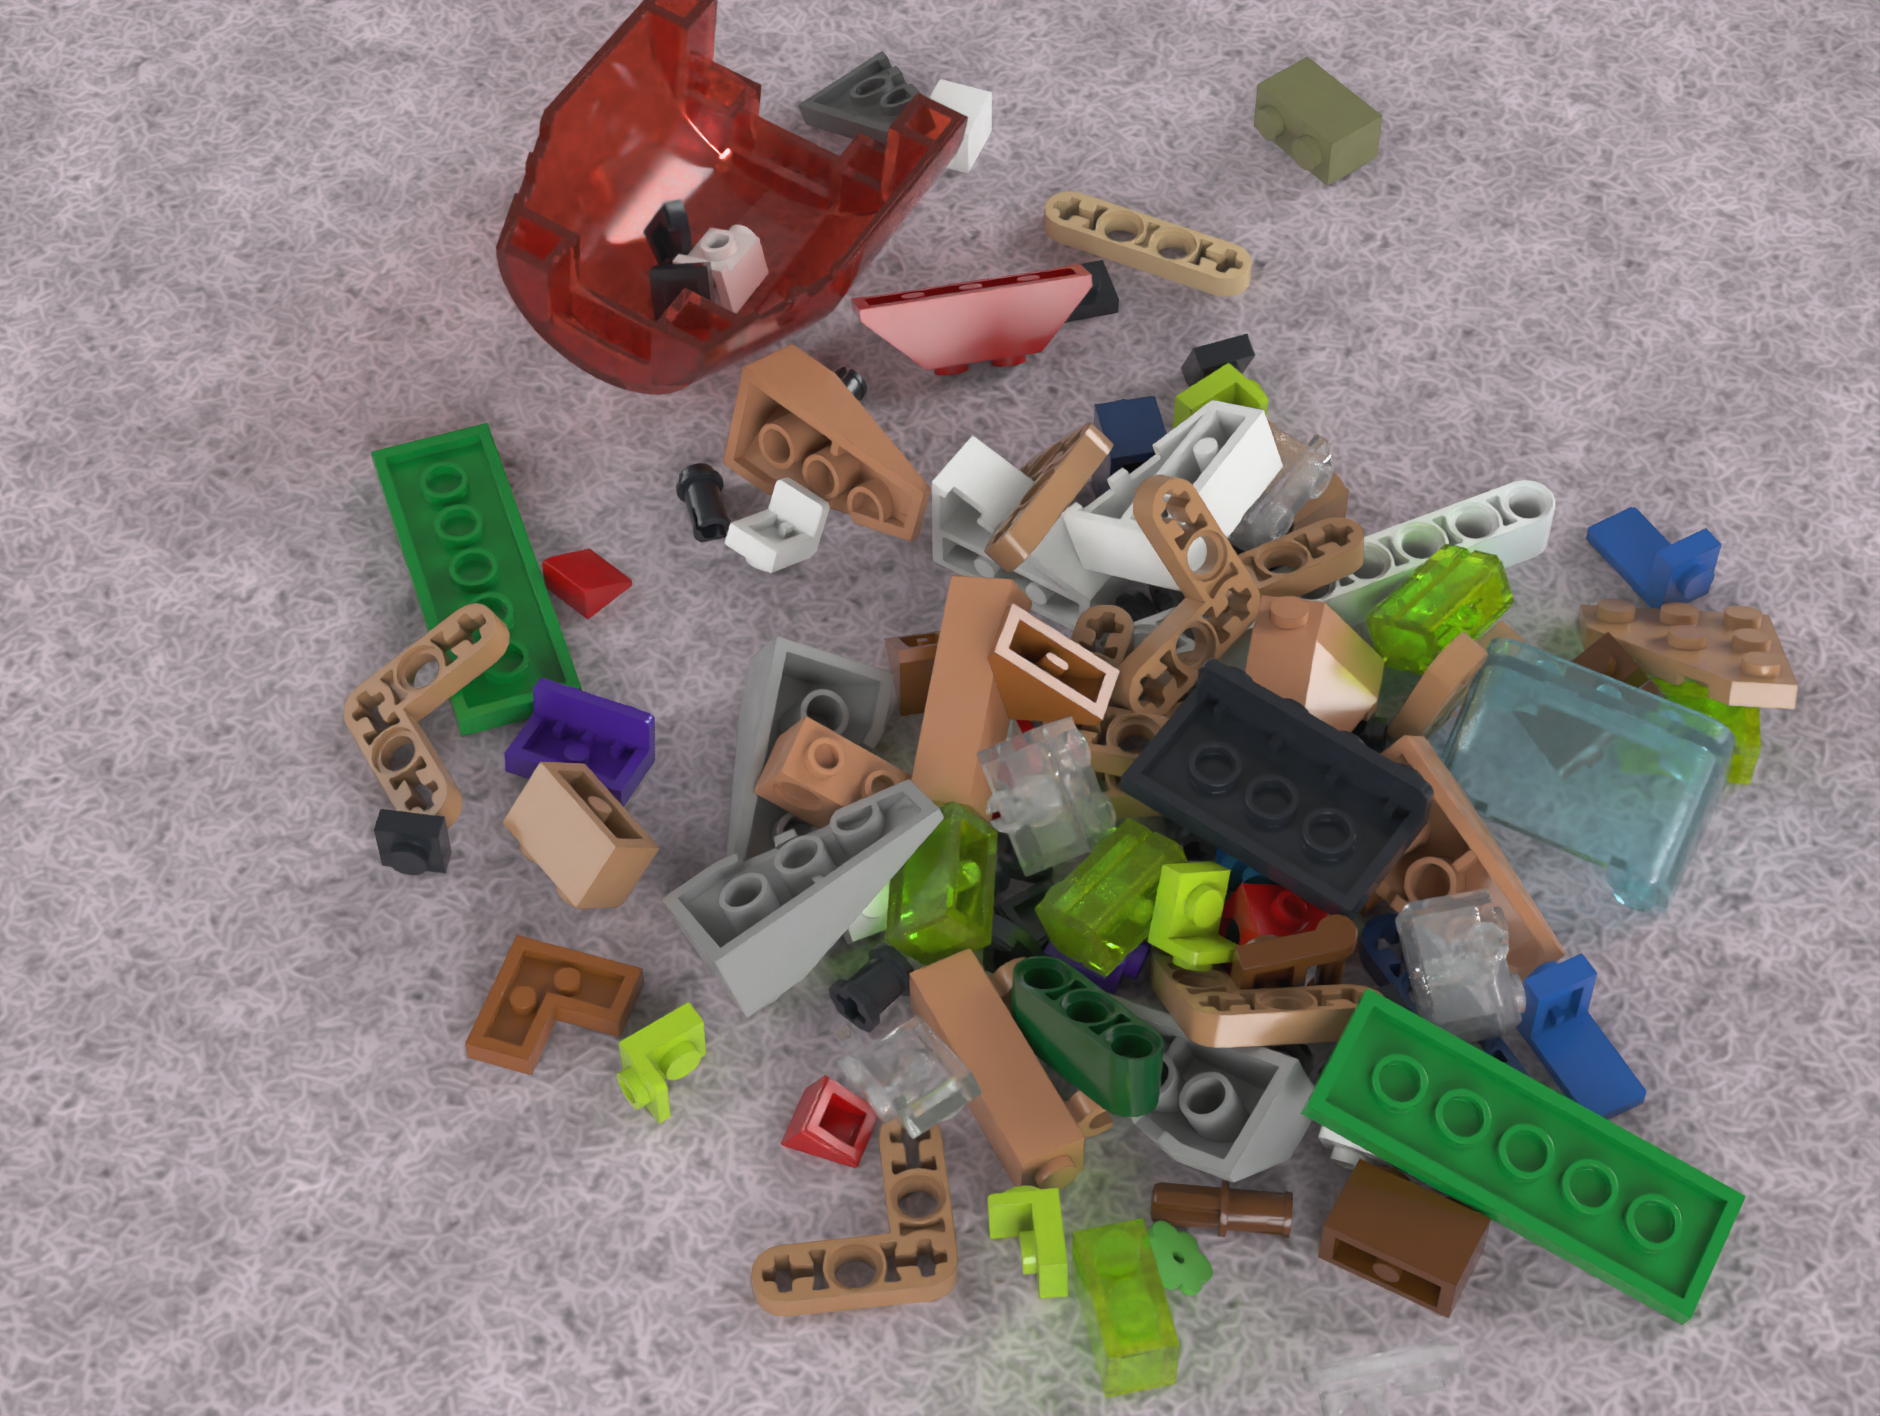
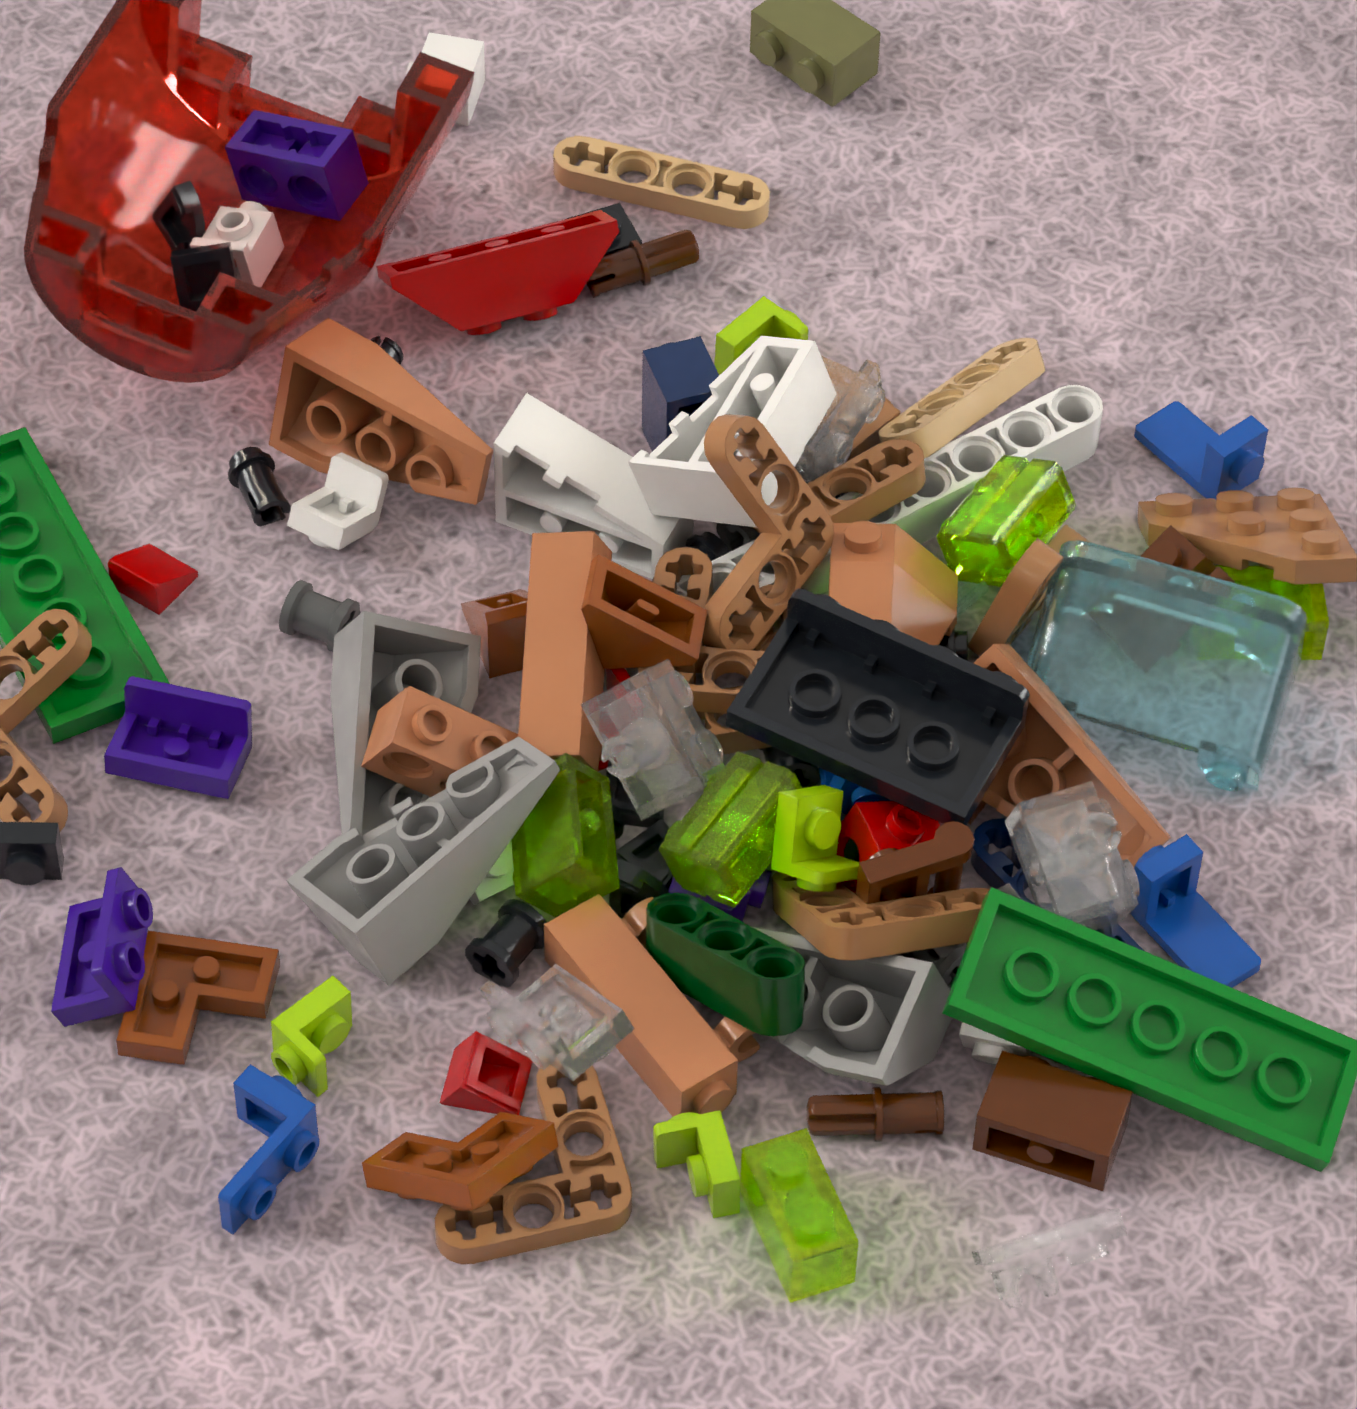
camera: 10 degrees left, 0 degrees up
(468, 952) = (103, 952): none -> dark purple bracket
(580, 835) = (195, 827): brick -> none
(621, 1172) = (290, 1122): none -> blue bracket
(736, 633) = (315, 613): none -> dark grey bush
(789, 1220) = (461, 1171): none -> dark orange plate
(790, 194) = (297, 164): none -> dark purple brick
(861, 101) = (355, 62): dark grey wing -> none
(1057, 479) = (618, 426): medium nougat beam -> none
(1116, 319) = (643, 262): none -> reddish brown axle
(1178, 1259) = (843, 1165): bright green plant -> none
(1211, 357) = (745, 292): black plate -> none
(1420, 481) = (968, 396): none -> tan beam

